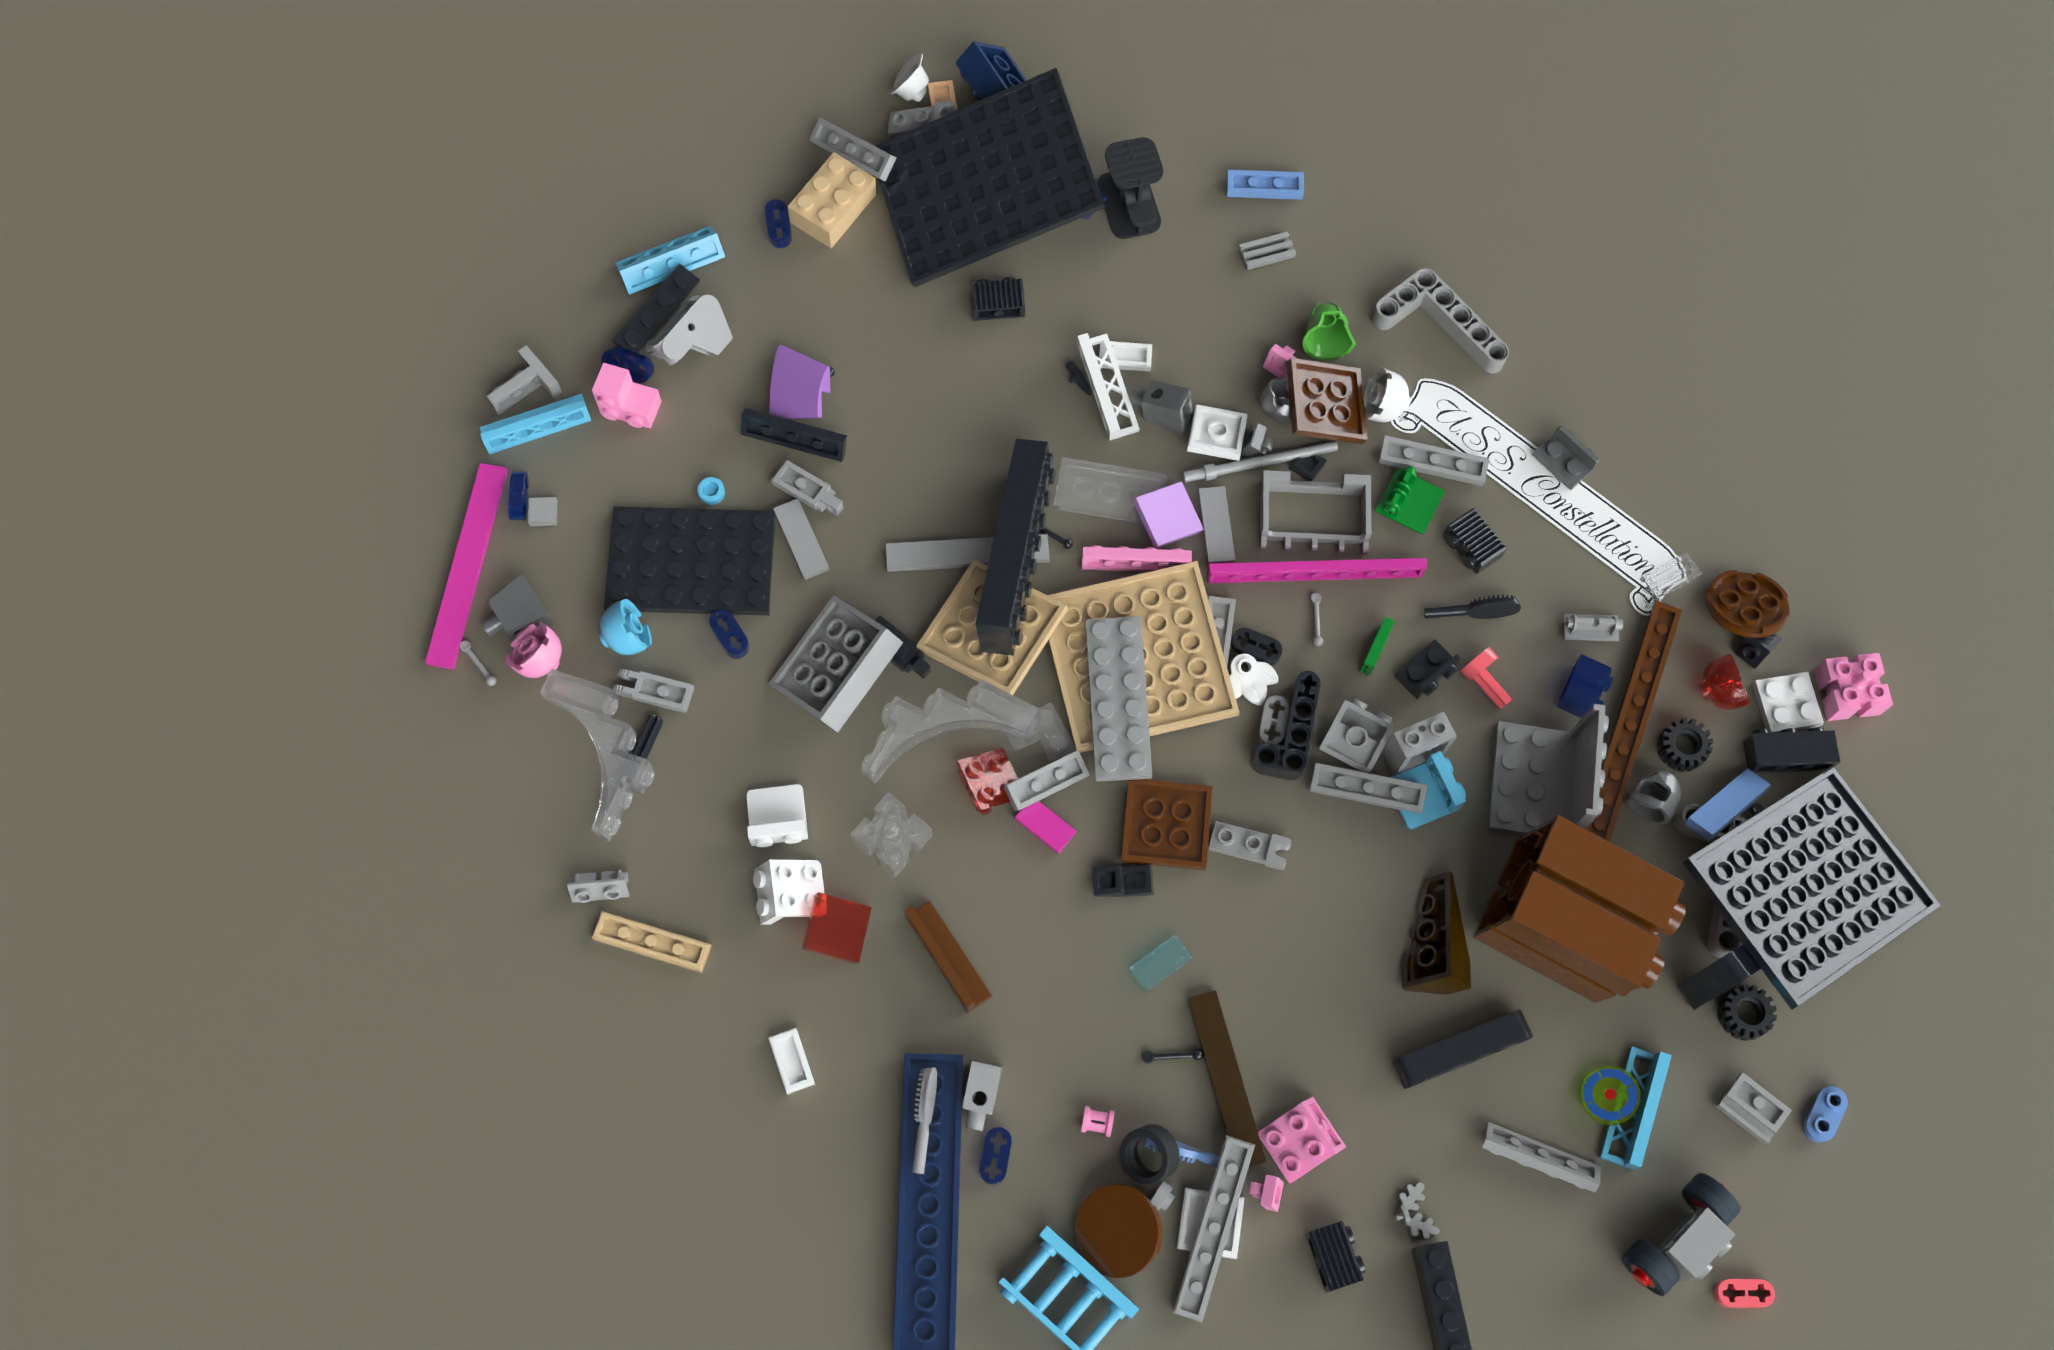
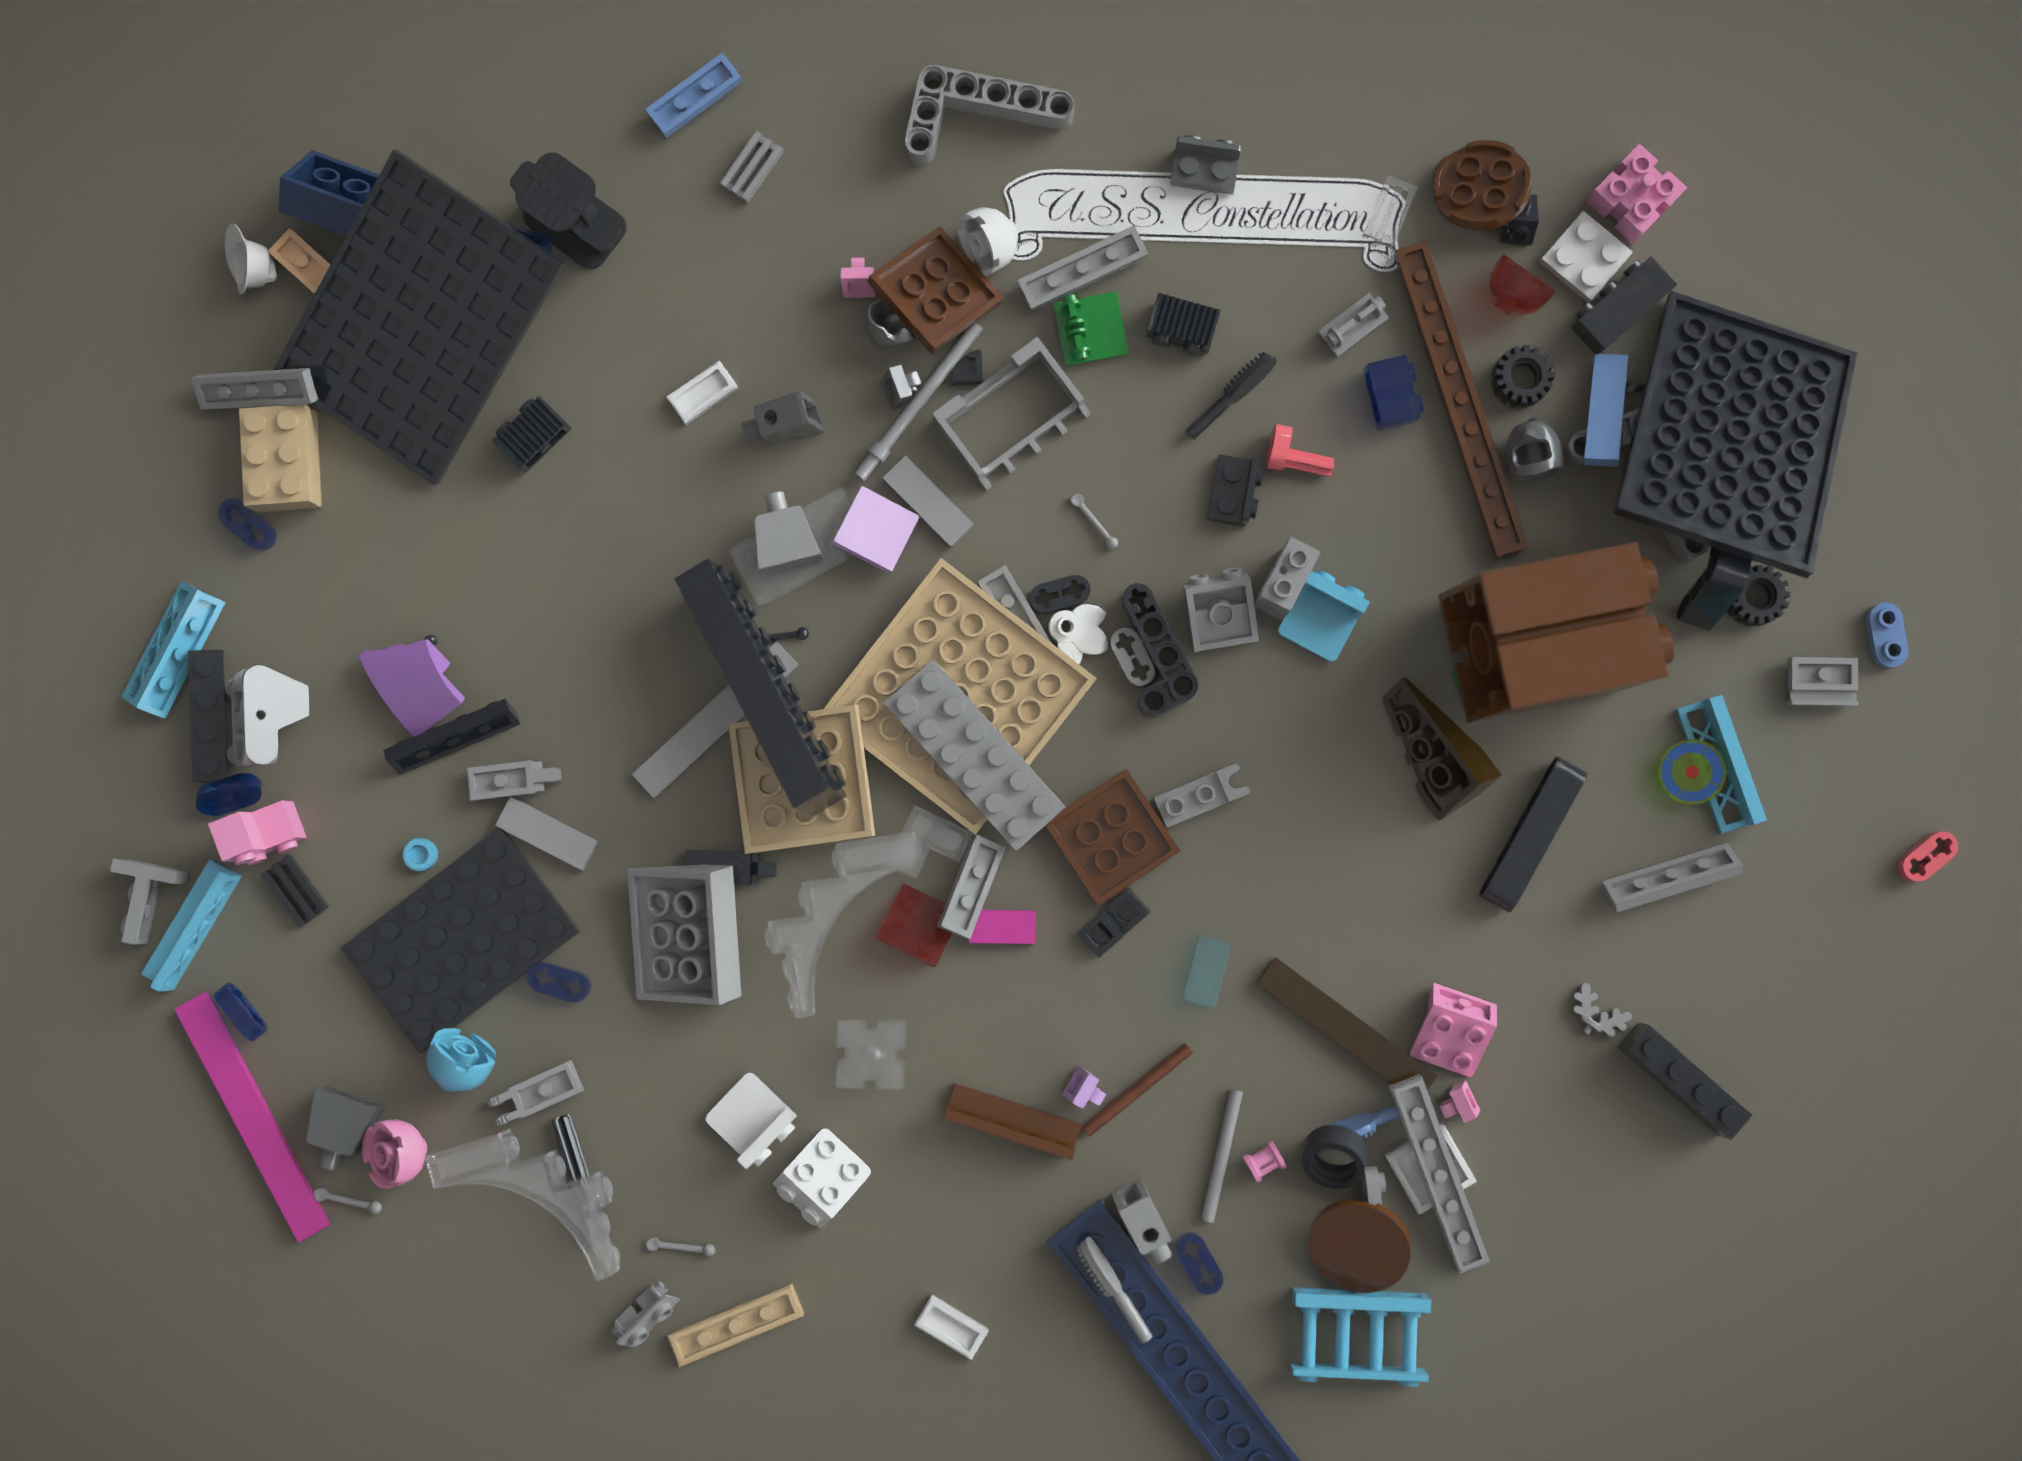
camera: 30 degrees left, 15 degrees up
(543, 511) = (277, 1006): light grey tile -> none
(617, 432) = (278, 868): none -> black tile
(644, 847) = (654, 1244): none -> light grey hinge
(837, 928) = (893, 1179): clear red tile -> none
(907, 120) = (289, 304): light grey plate -> none
(1012, 970) = (1083, 1088): none -> lavender tile
(1048, 1004) = (1137, 1089): none -> copper bar
(1071, 1095) = (1221, 1155): none -> light grey bar
(1078, 378) = (676, 453): black helmet -> none
(1099, 385) = (704, 450): white fence -> none
(1105, 473) = (784, 536): none -> light grey torso
(1132, 559) = (872, 606): bright pink plate -> none
(1148, 1056) = (1263, 1064): black hinge -> none
(1217, 432) = (855, 404): white tile -> none
(1316, 570) = (1058, 474): dark pink tile -> none
(1327, 333) = (880, 212): bright green helmet -> none
(1335, 1256) = (1560, 1112): black brick -> none
(1368, 788) = (1269, 655): light grey plate -> none
(1377, 646) = (1172, 505): green tile -> none
(1547, 774) = (1424, 513): light grey bracket -> none
(1692, 1243) = (1856, 853): brick -> none

